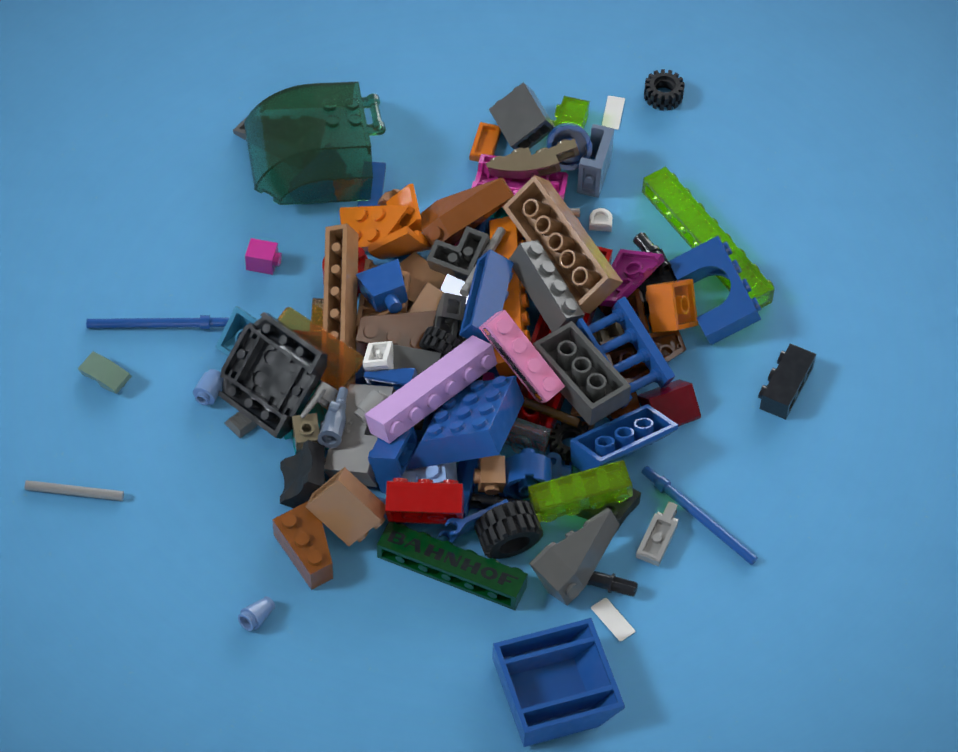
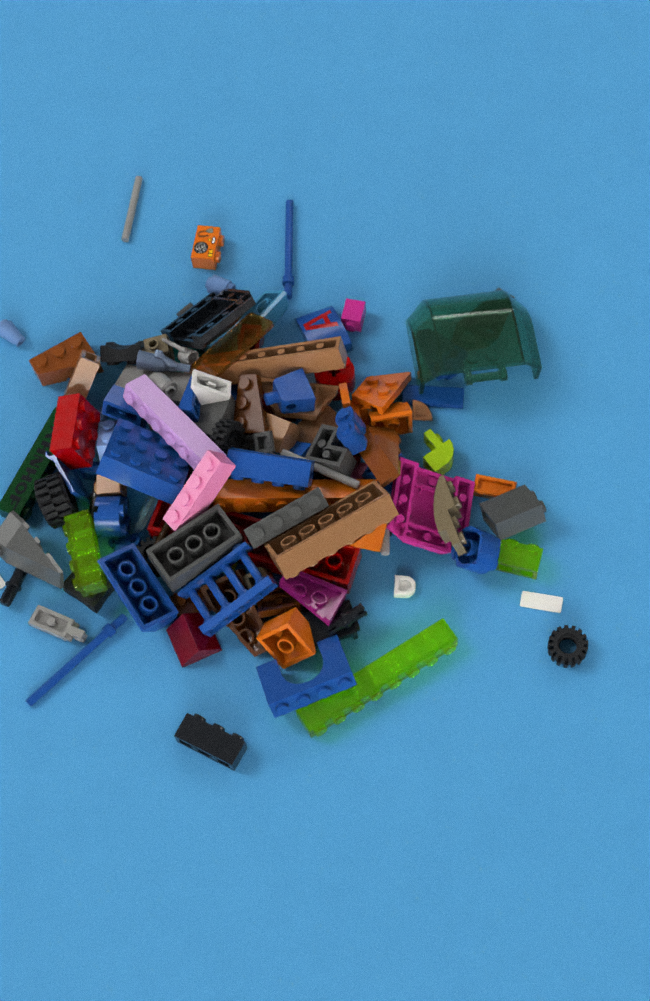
camera: 100 degrees right, 10 degrees up
(105, 372) = (235, 215): sand green slope -> none
(149, 402) = (207, 247): none -> orange brick
(284, 283) = (322, 325): none -> blue slope
(445, 225) = (351, 430): none -> blue brick
(446, 179) = (441, 455): none -> lime brick
(593, 172) = (460, 580): sand blue panel -> none

